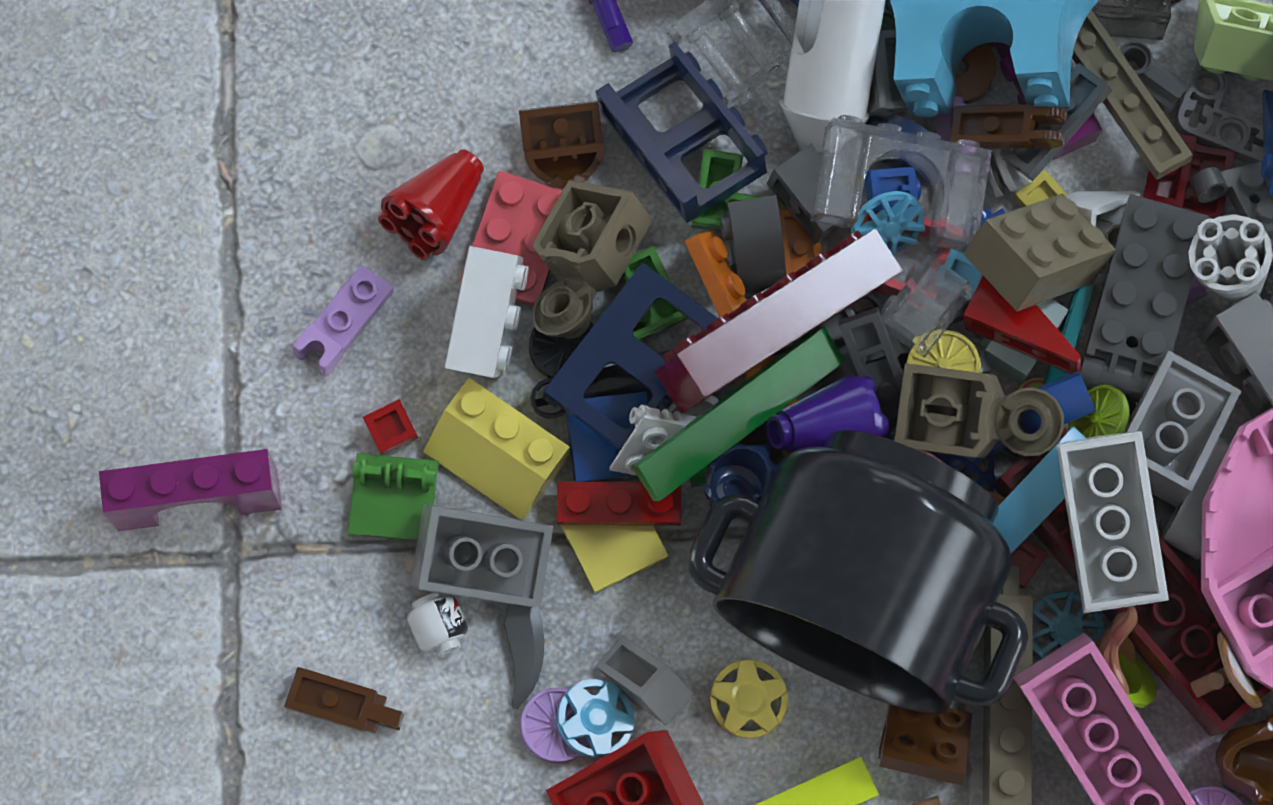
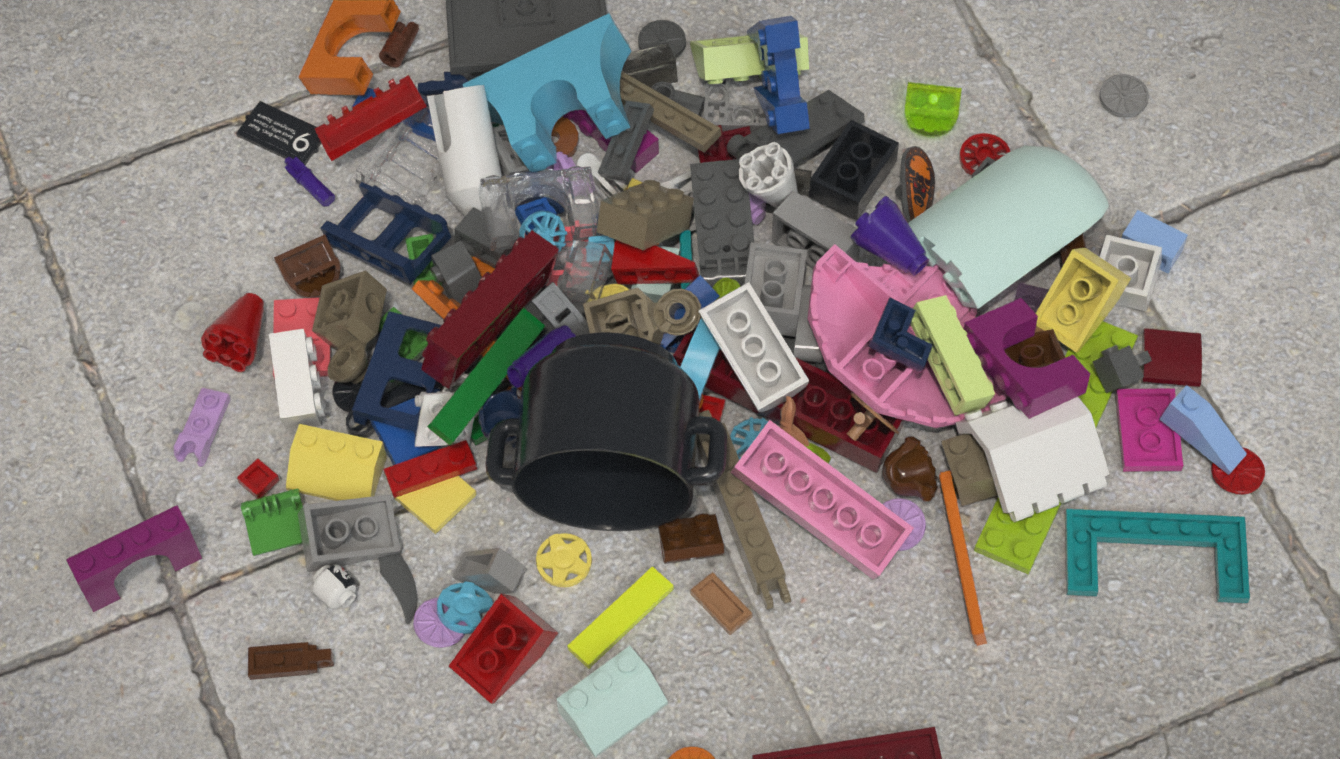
camera: 15 degrees left, 15 degrees down
(1008, 126) = (598, 150): reddish brown hinge -> none

